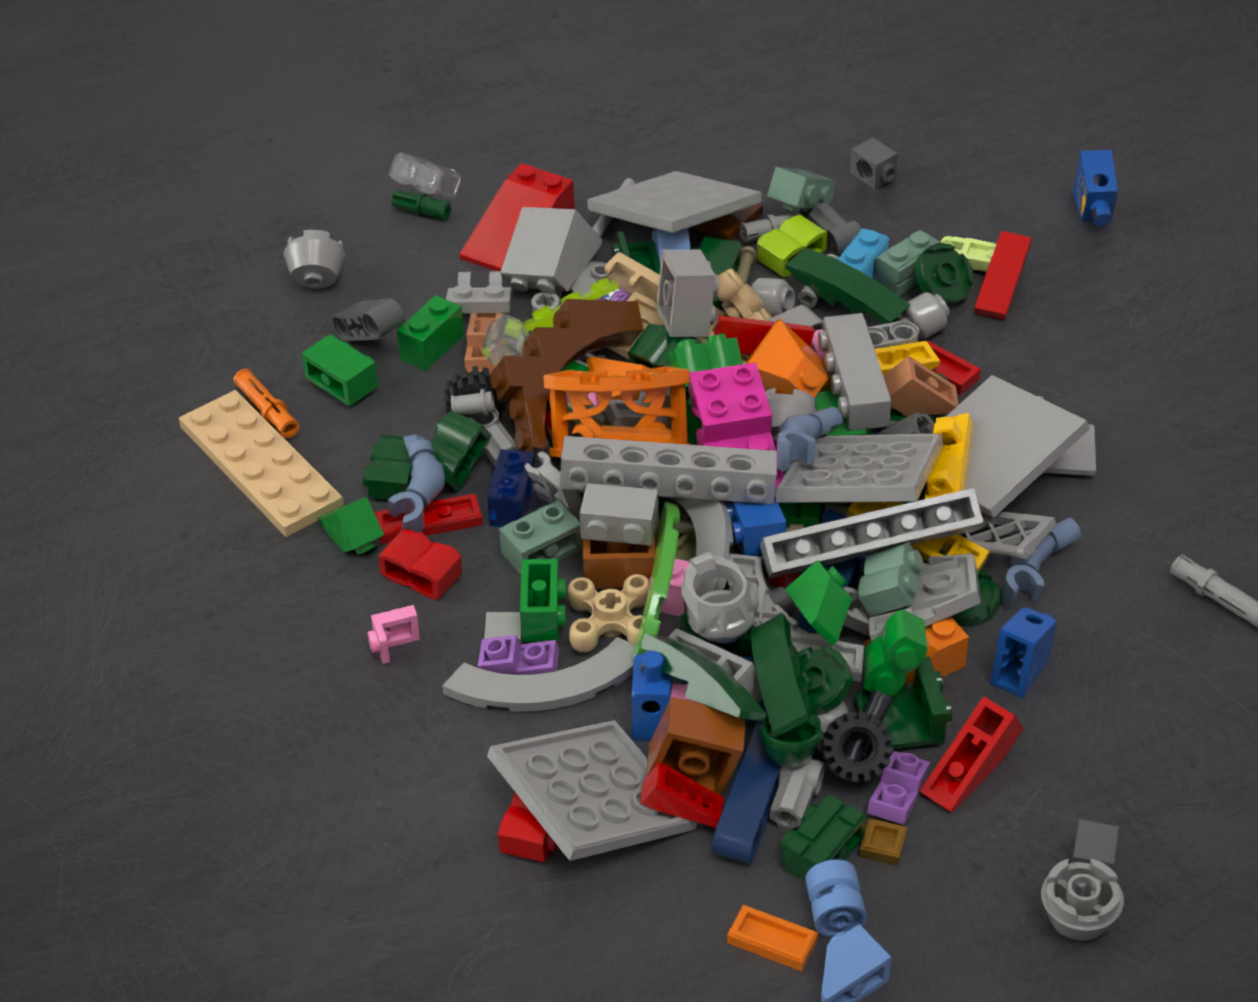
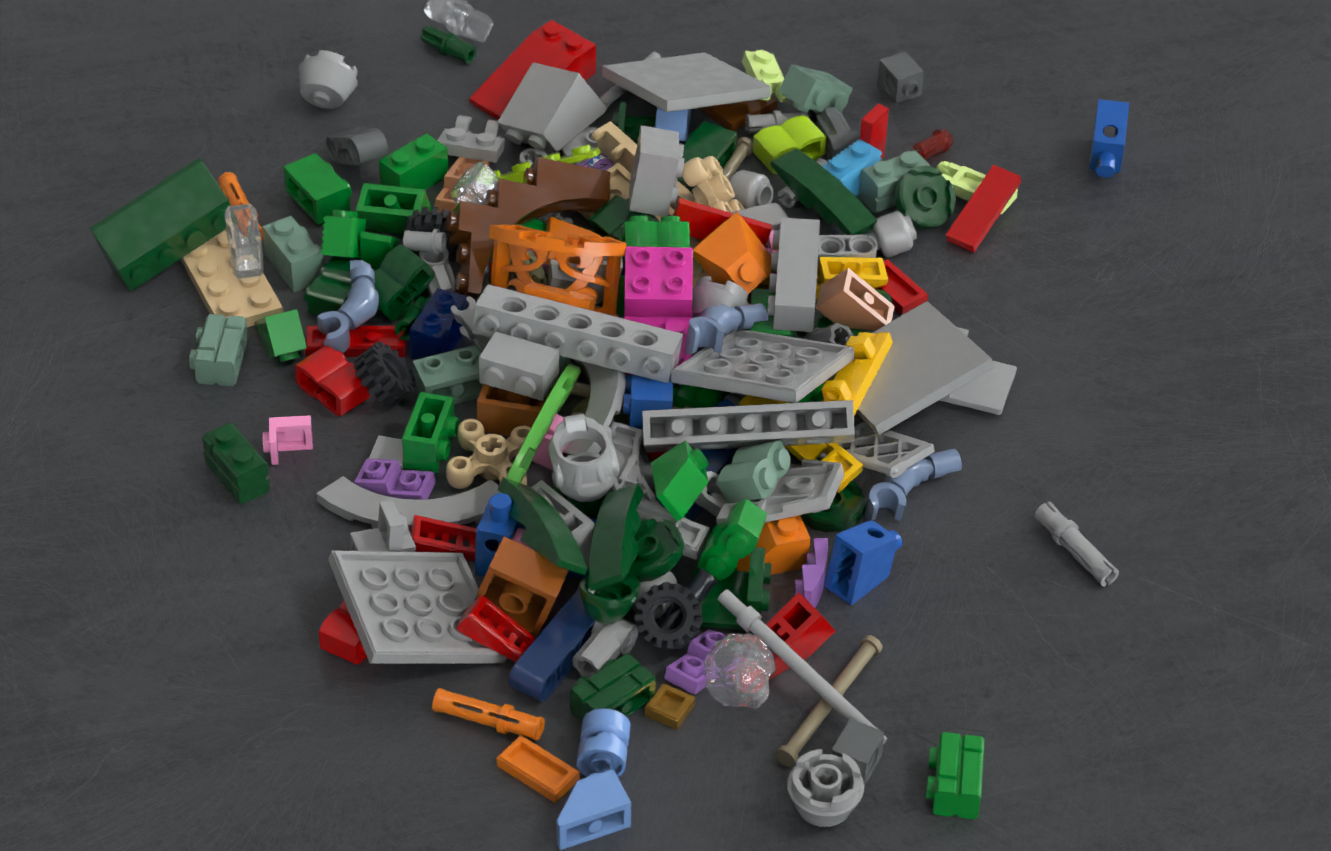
camera: 10 degrees right, 0 degrees up
(199, 434) = (162, 224): none -> dark green slope
(287, 436) = (244, 241): none -> clear brick
(293, 553) = (219, 350): none -> sand green brick
(336, 440) = (292, 252): none -> sand green brick
(349, 669) = (236, 463): none -> dark green brick
(386, 411) = (342, 234): none -> green brick
(422, 375) = (389, 206): none -> green brick
(423, 419) = (375, 247): none -> green slope
(475, 547) = (384, 374): none -> black tyre
(480, 483) = (409, 316): none -> dark green axle
(538, 717) = (390, 535): none -> light grey brick
(566, 708) = (425, 530): none -> red slope
(738, 174) = (765, 68): none -> yellowish green hinge
(750, 892) = (528, 724): none -> orange pin
(875, 212) = (875, 127): none -> red tile
(933, 218) = (939, 142): none -> clear red pin
(943, 735) = (751, 621): none -> light grey bar
(947, 791) = (739, 671): none -> clear hair
(979, 669) = (813, 573): none -> medium lavender slope
(1023, 868) = (788, 753): none -> dark tan bar
(1203, 857) = (957, 776): none -> green brick

